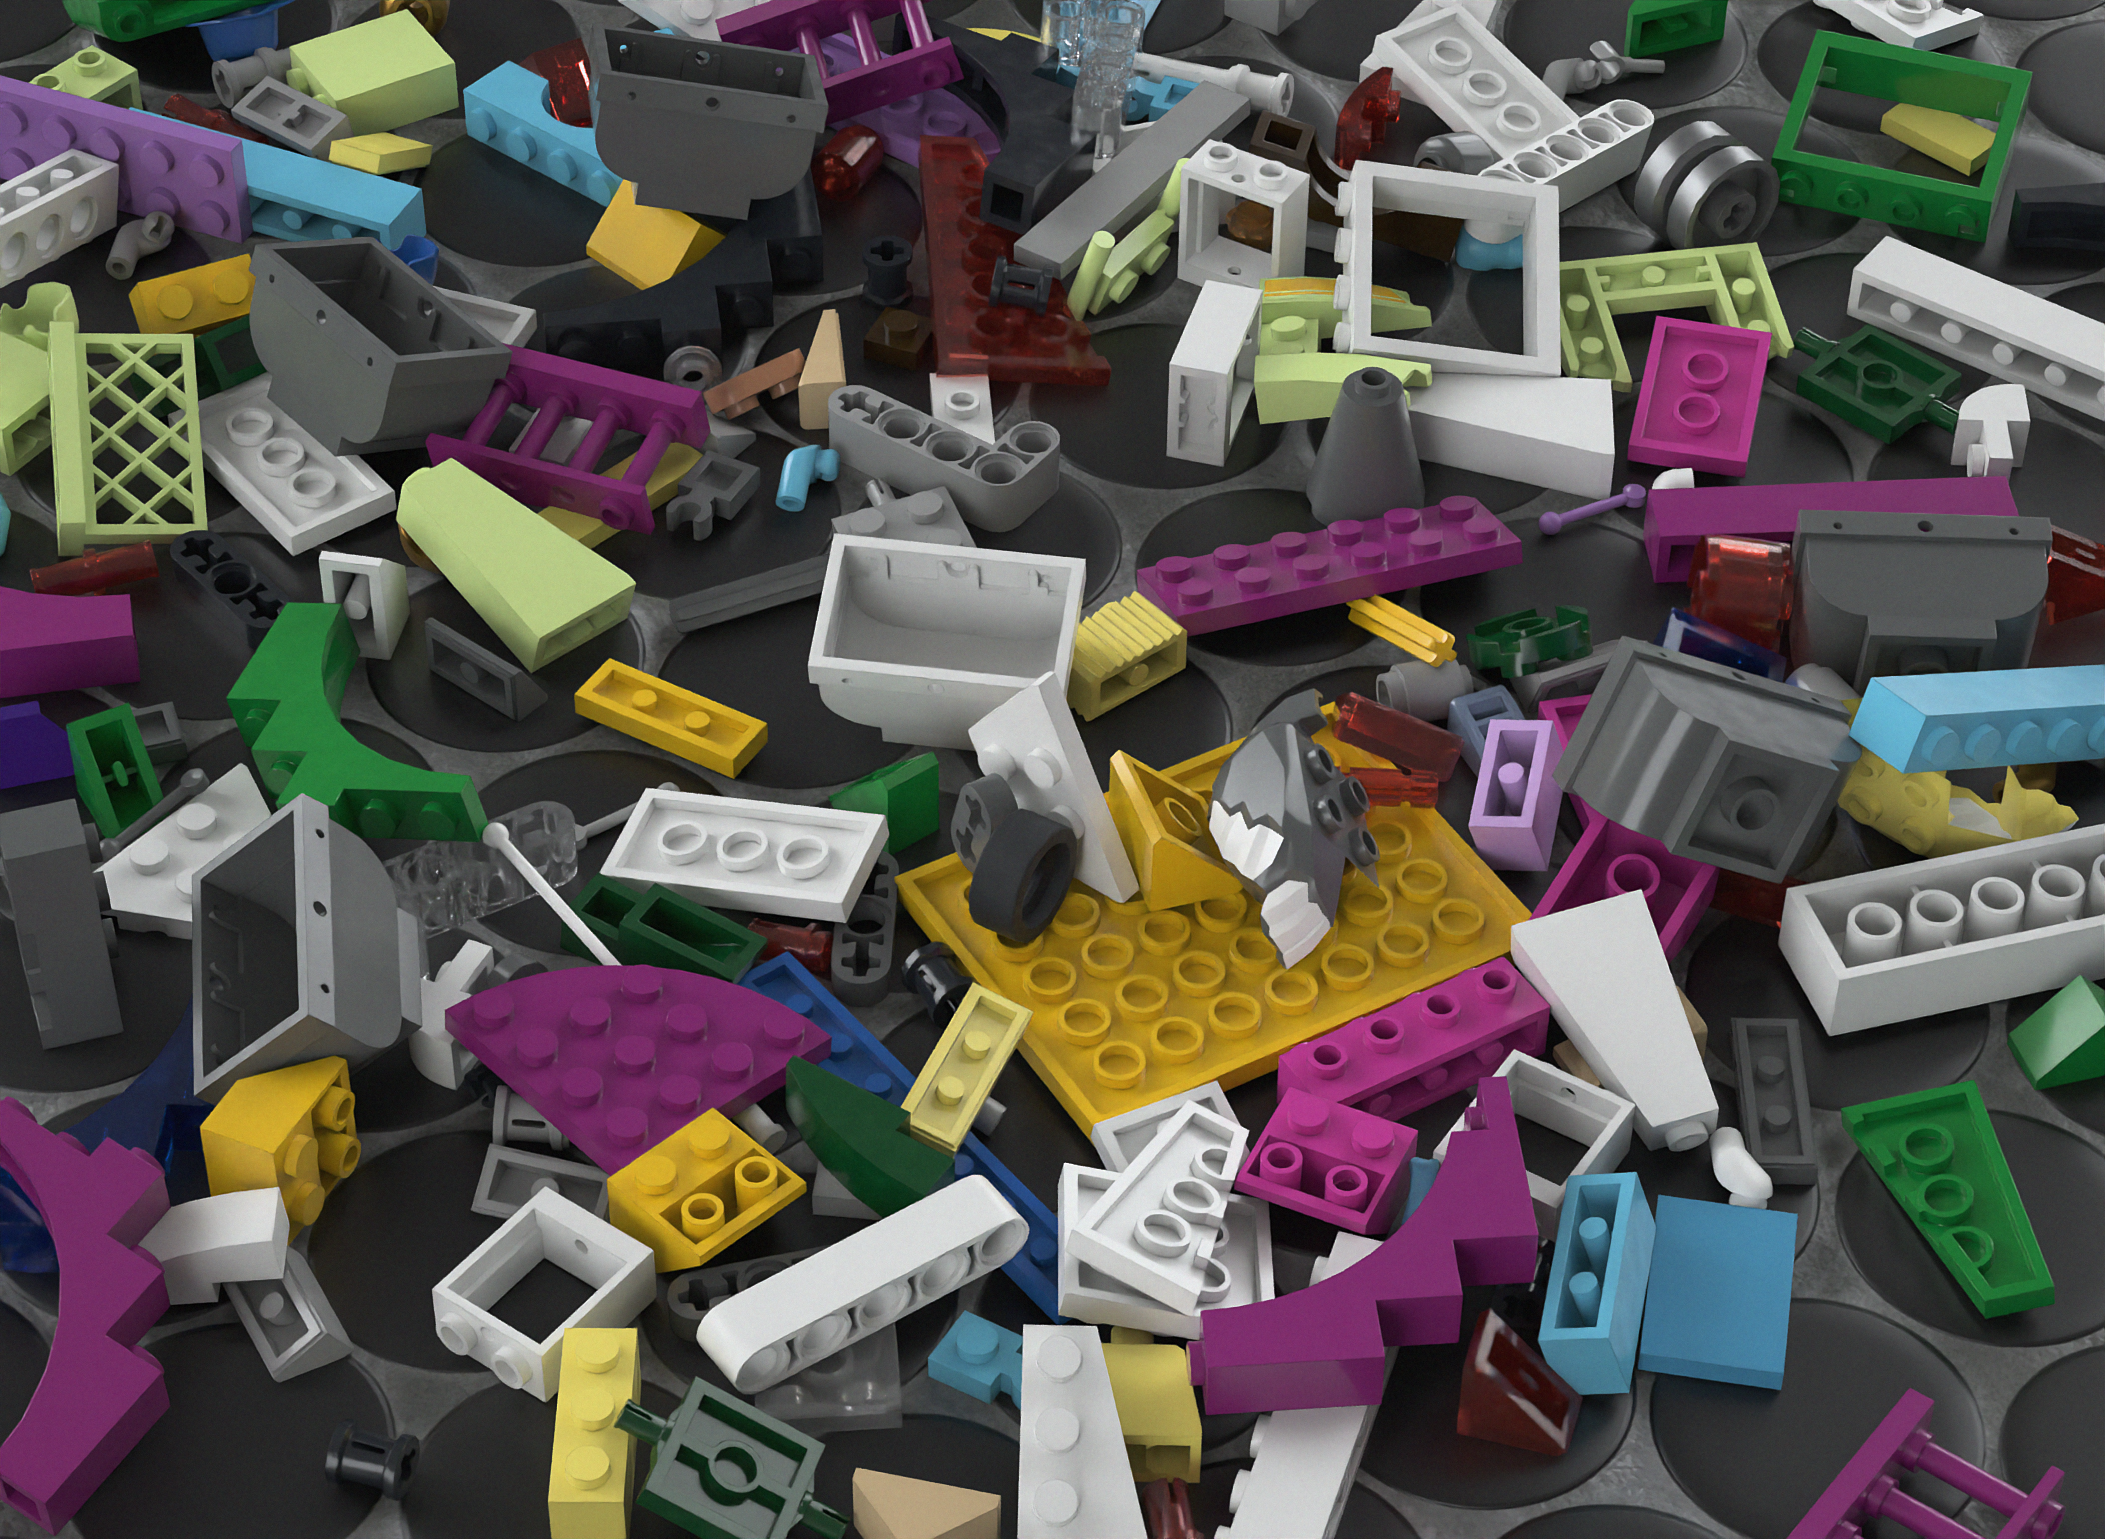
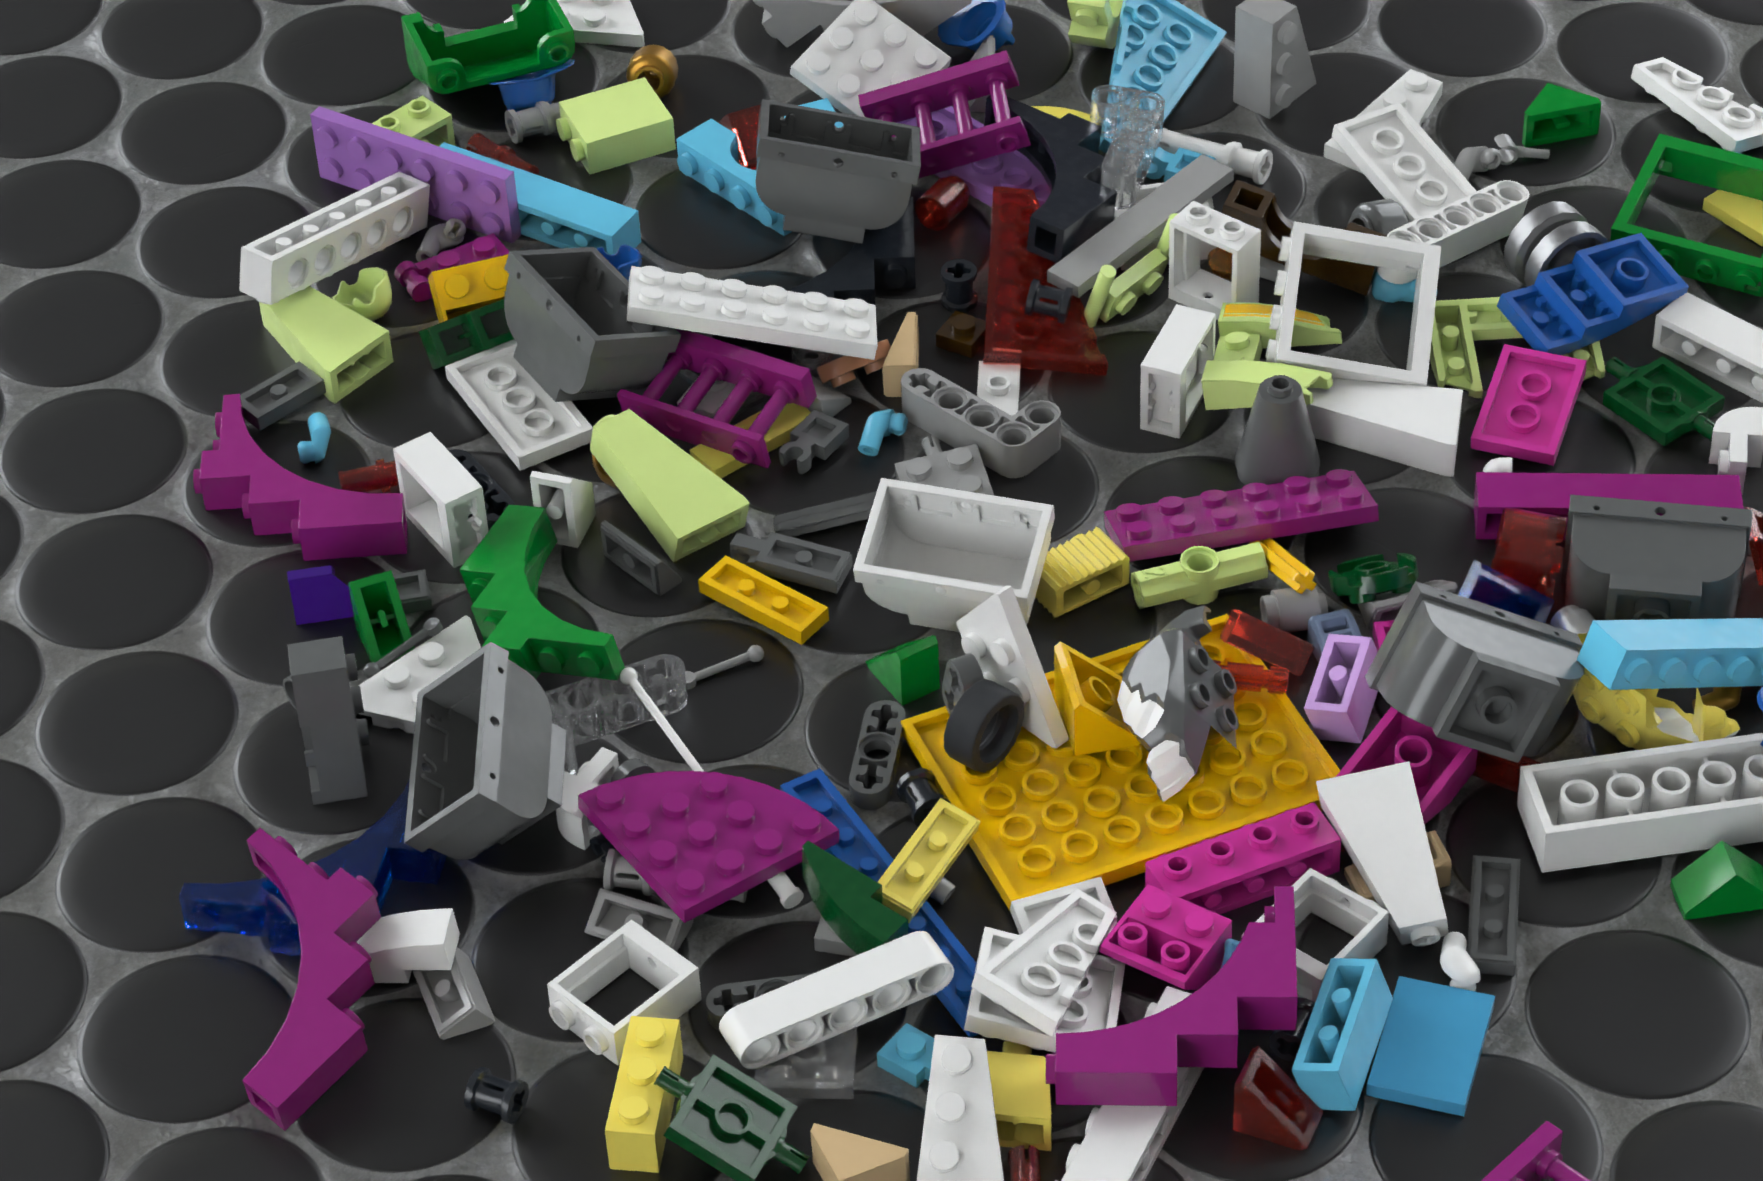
camera: 10 degrees right, 0 degrees up
(74, 448) = (378, 370): yellowish green fence -> none
(111, 292) = (416, 275): none -> magenta plate
(186, 598) = (441, 497): none -> white window
(285, 1133) = (463, 872): yellow slope -> none
(292, 118) = (559, 157): light grey hinge -> none
(380, 153) = (614, 182): light yellow tile -> none
(607, 317) = (752, 312): none -> white plate
(649, 242) = (794, 256): yellow slope -> none
(661, 931) = (735, 749): dark green slope -> none
(699, 1192) = (734, 930): yellow slope -> none
(707, 660) = (793, 560): none -> dark grey hinge
(749, 853) = (800, 699): white plate -> none
(808, 945) = (834, 765): clear red pin -> none
(1285, 650) = (1199, 575): none -> yellowish green piece
(1366, 117) = (1320, 185): clear red slope -> none
(1632, 496) = (1407, 491): medium lavender hinge -> none
(1765, 246) = (1593, 295): none -> blue slope
(1956, 1187) = (1611, 984): green wing -> none

